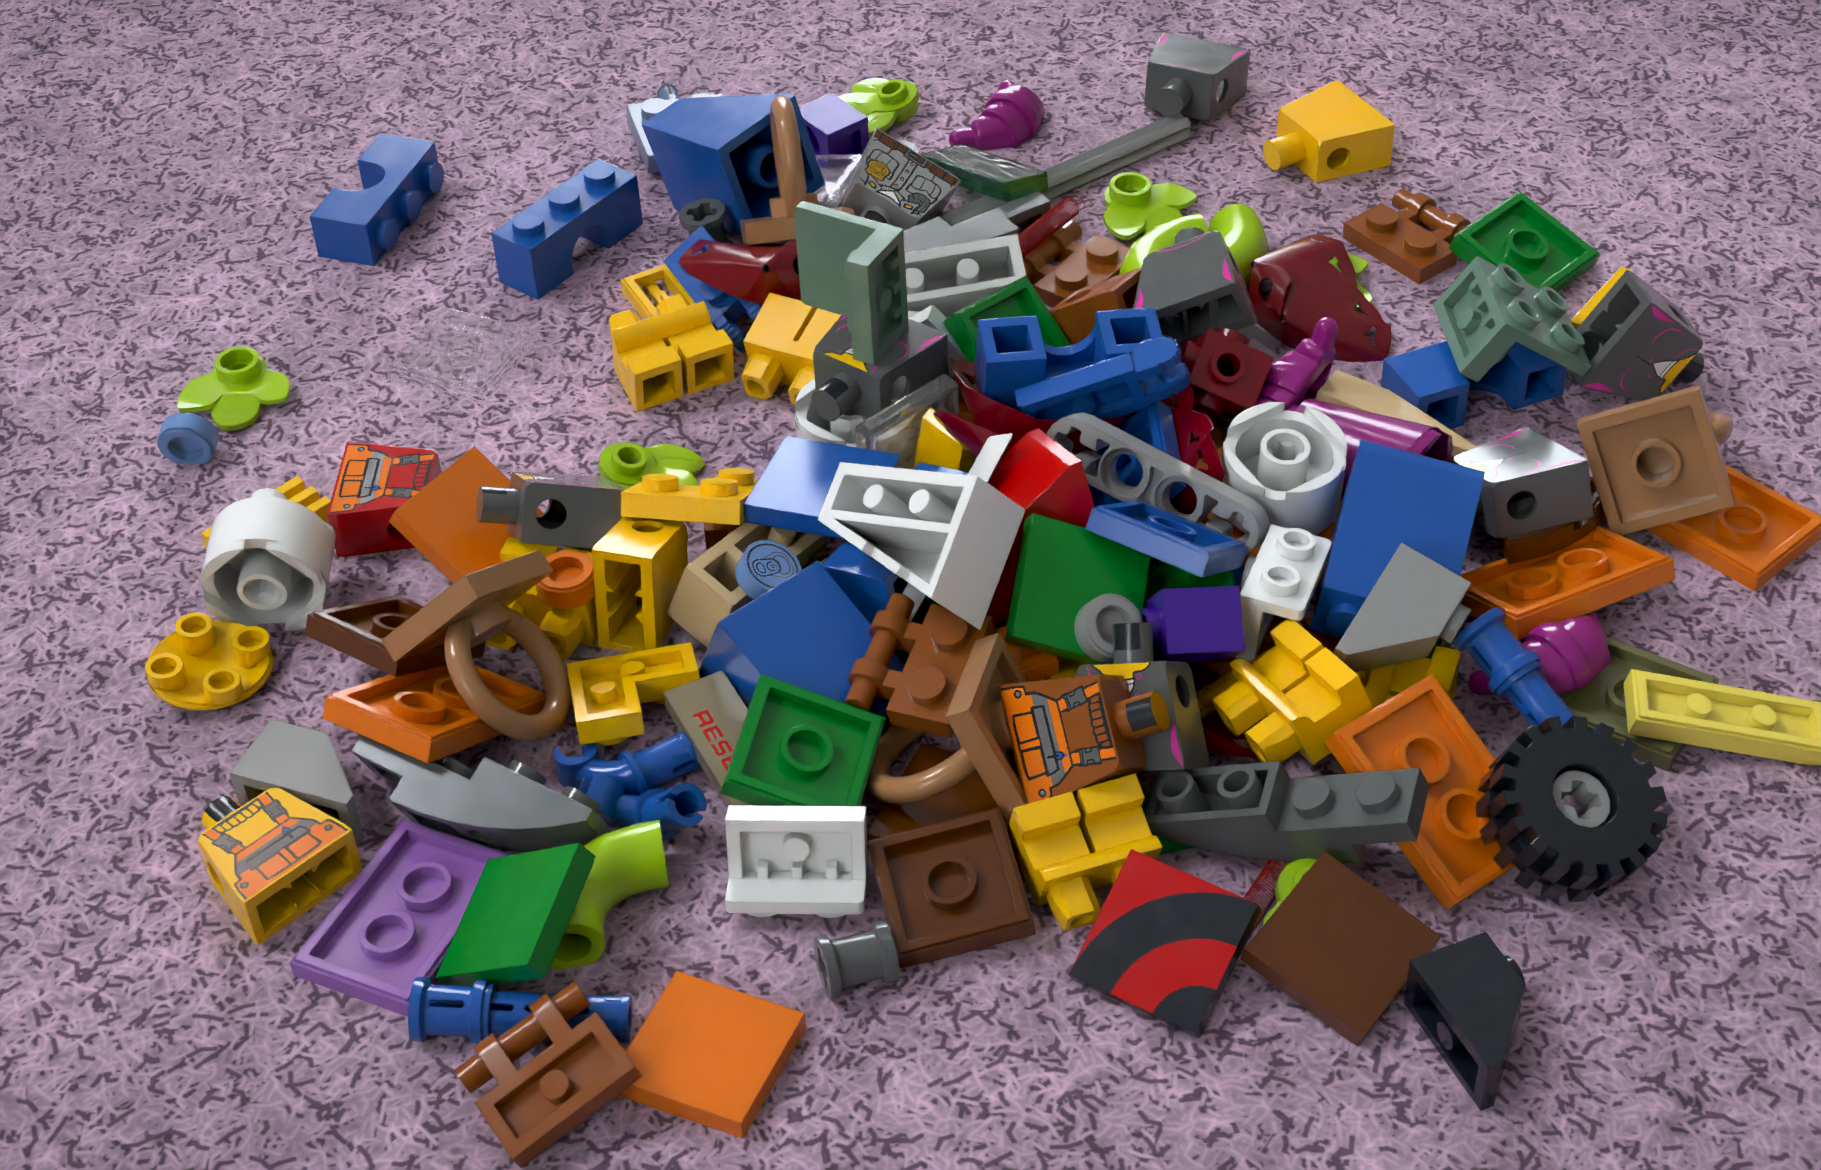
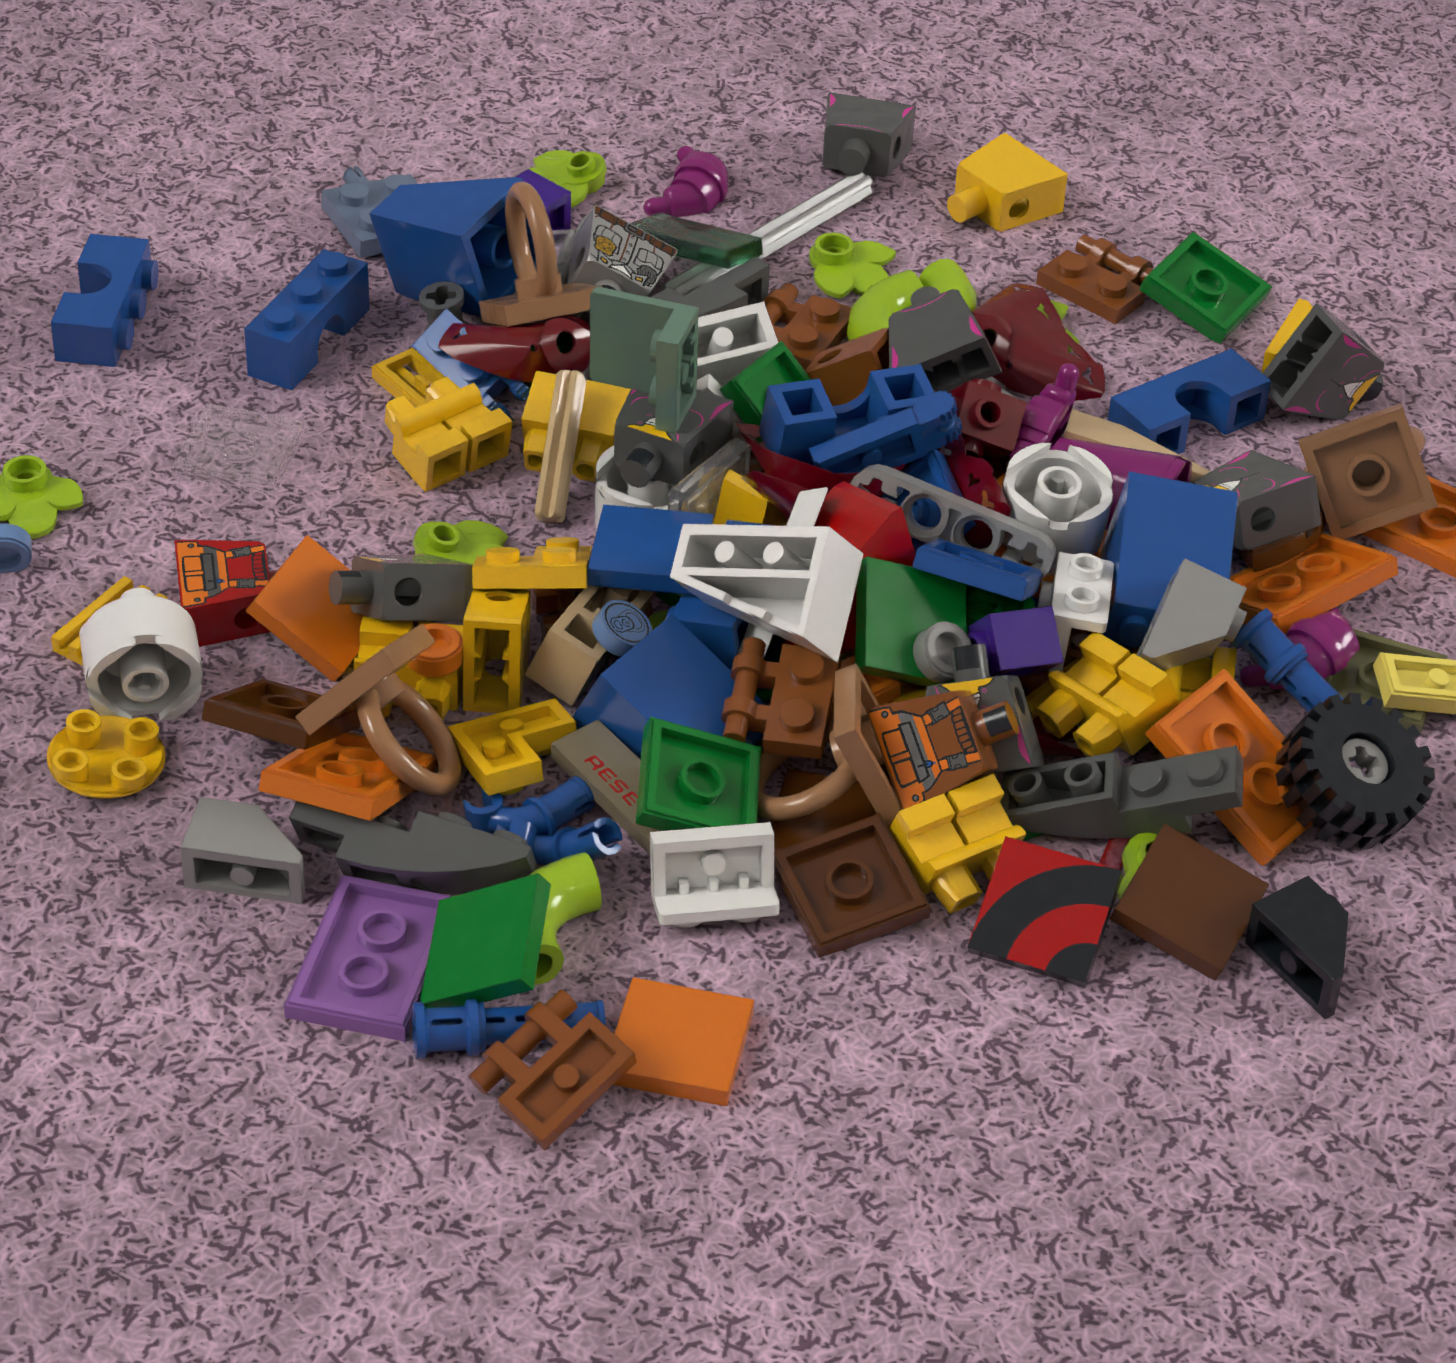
camera: 15 degrees left, 0 degrees up
(275, 858) = (238, 918): yellow torso -> none
(774, 374) = (560, 447): none -> tan axle
(856, 959) = (785, 951): dark grey bush -> none
(1051, 232) = (773, 285): red piece -> none
(1495, 308) = (1202, 348): sand green bracket -> none

